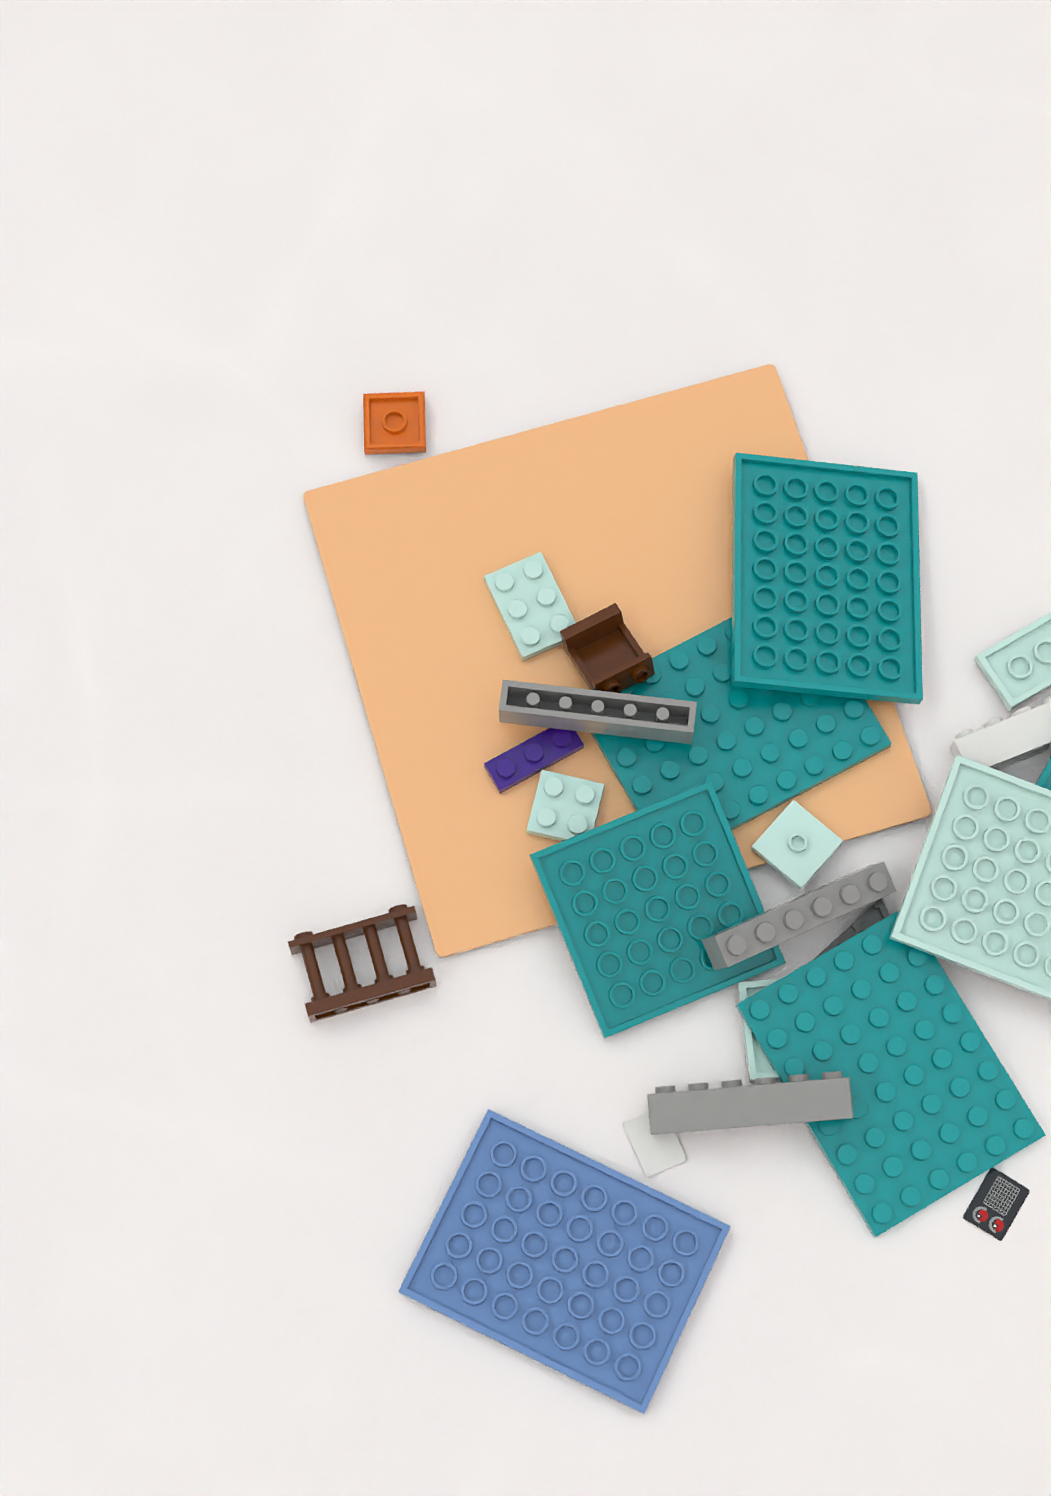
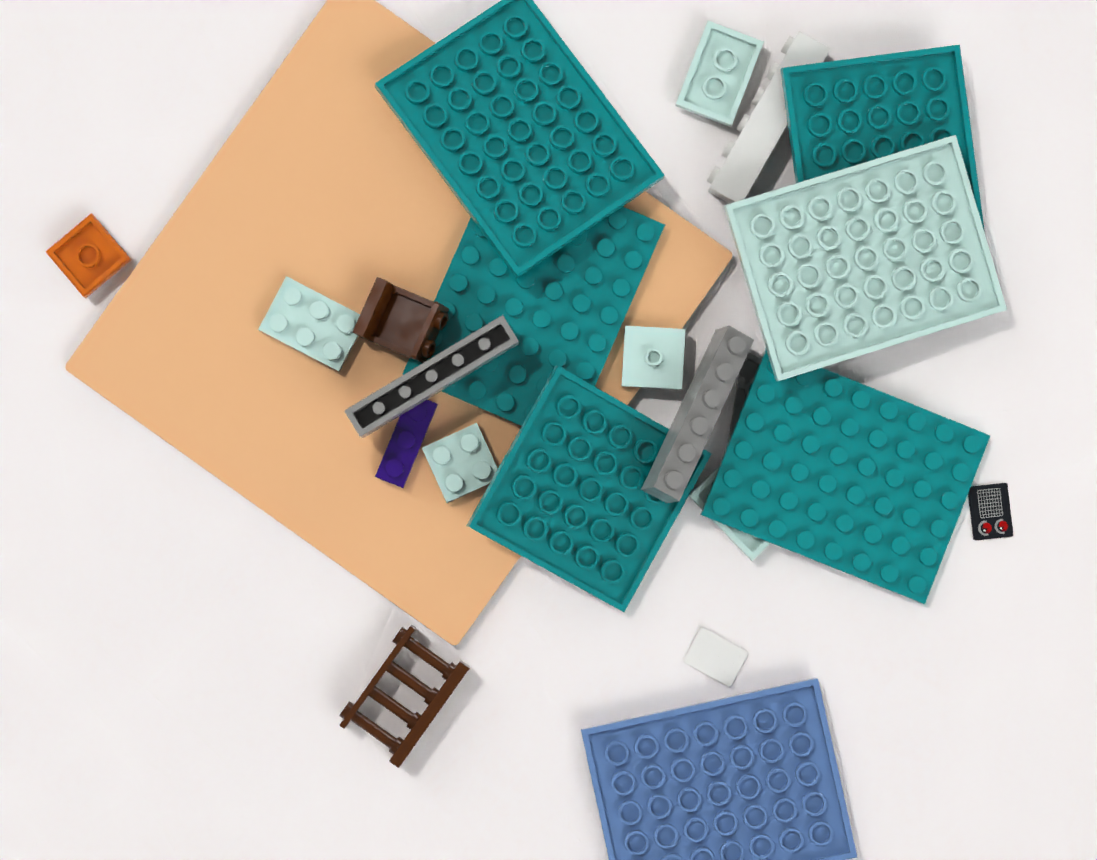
camera: 40 degrees left, 15 degrees up
(750, 1105) = (768, 583): light grey brick -> none

